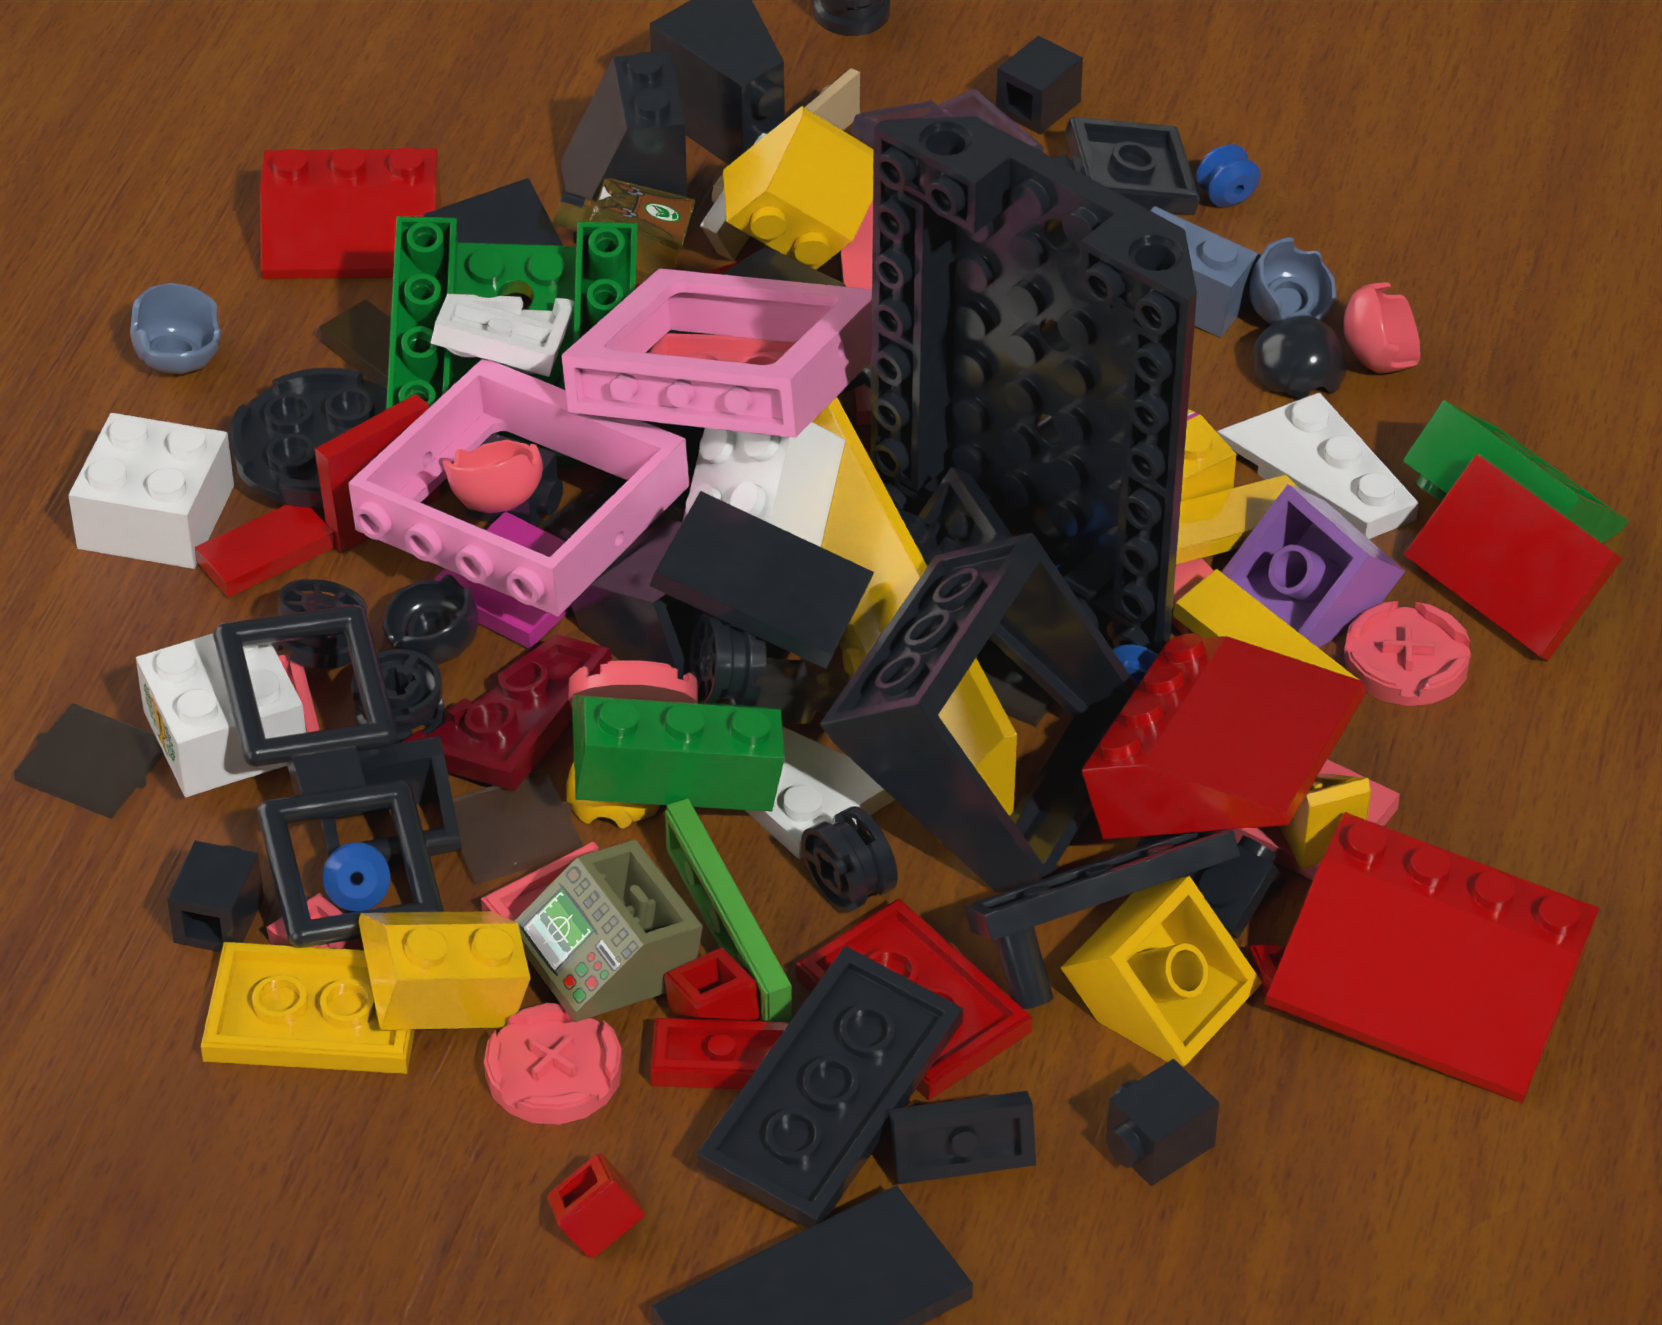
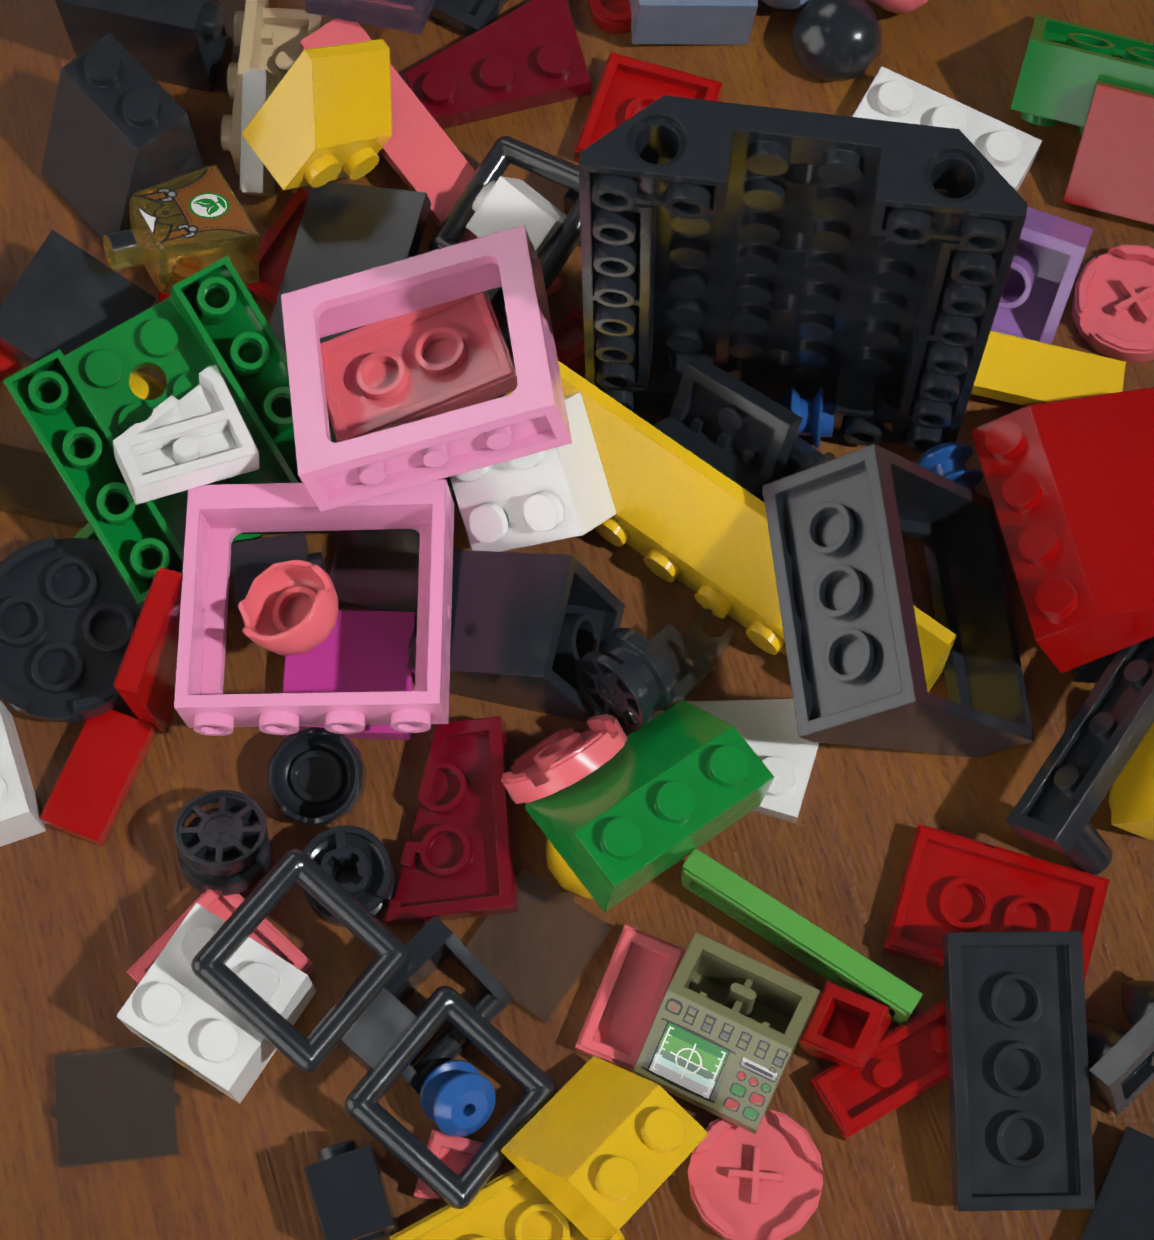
camera: 30 degrees left, 25 degrees up
(762, 579) = (622, 596): black tile -> none
(847, 860) = (862, 818): black wheel -> none

